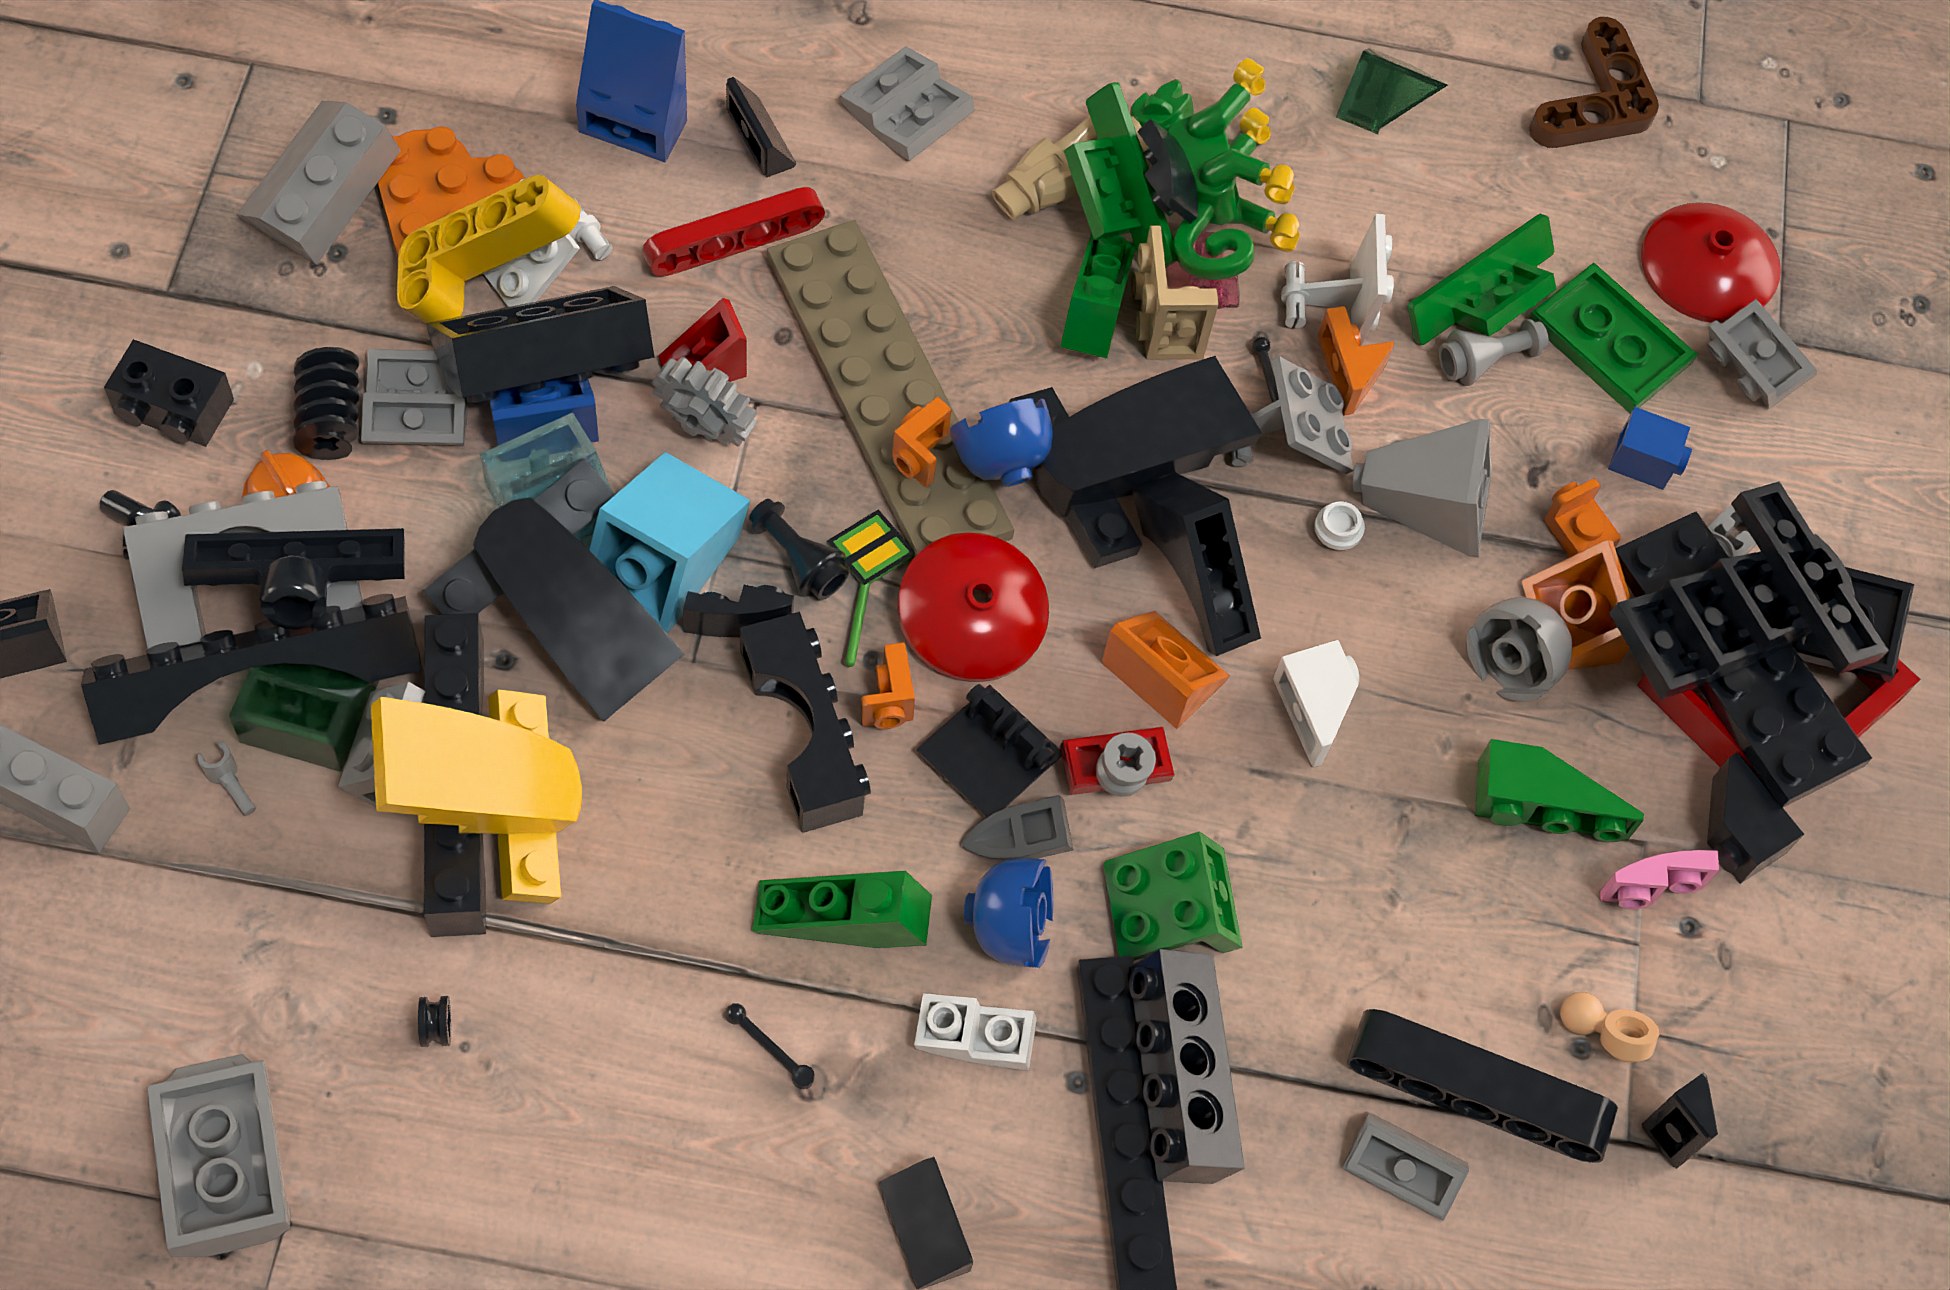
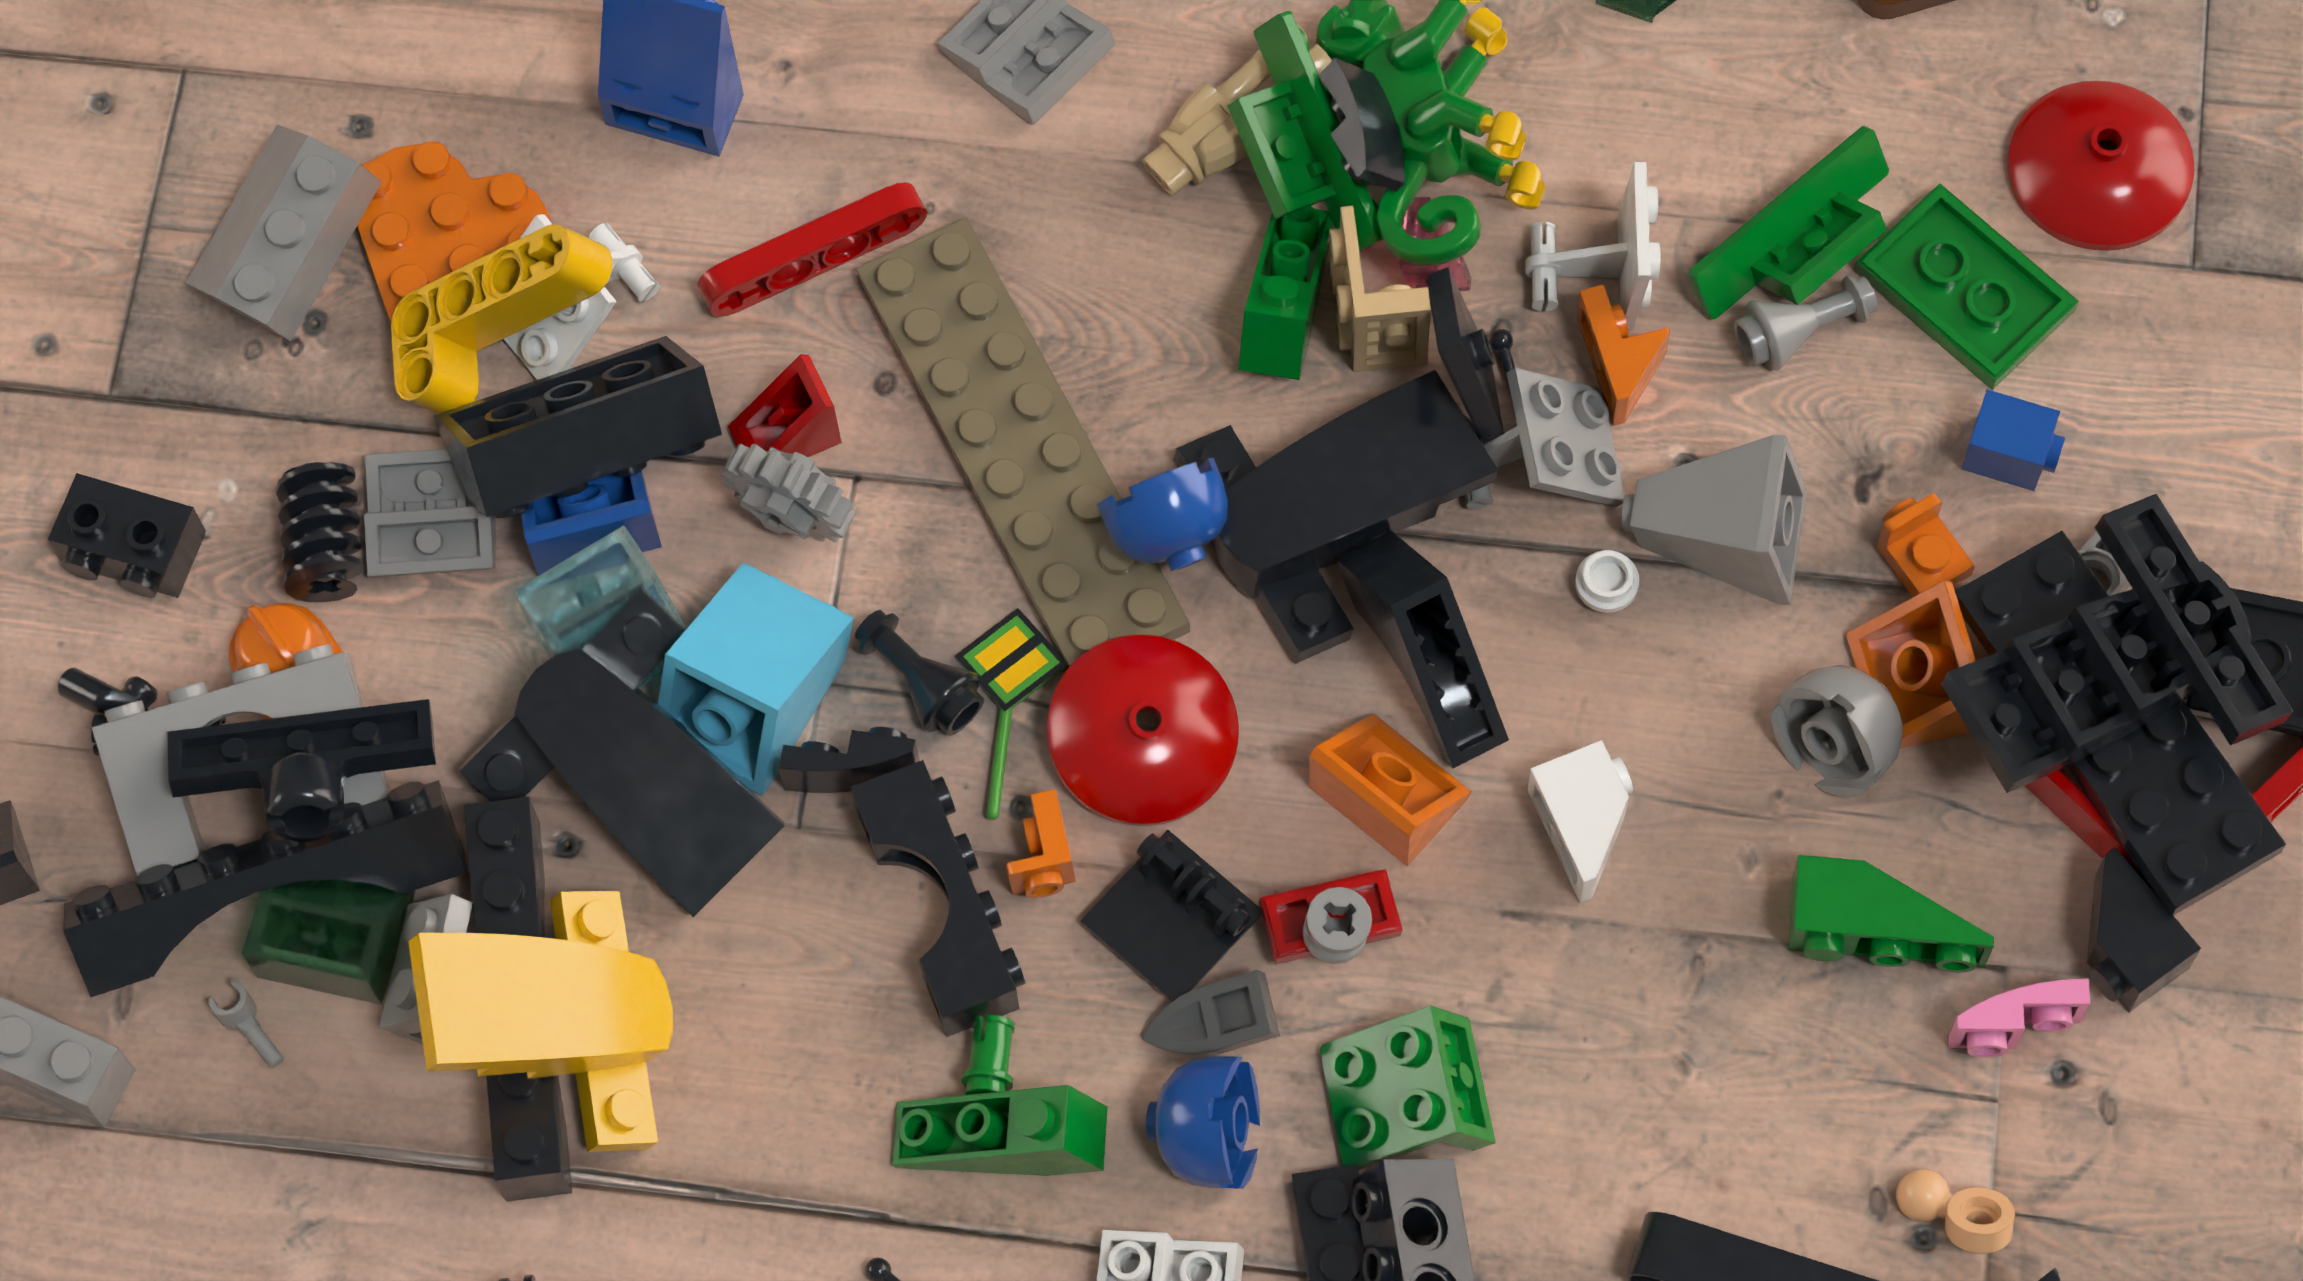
camera: 10 degrees right, 5 degrees up
(757, 129) = (836, 101): black slope -> none
(838, 847) = (989, 1056): none -> green pin
(916, 436) = (1057, 513): orange bracket -> none
(1243, 344) = (1465, 354): none -> black plate
(1761, 354) = (2162, 294): light grey bracket -> none

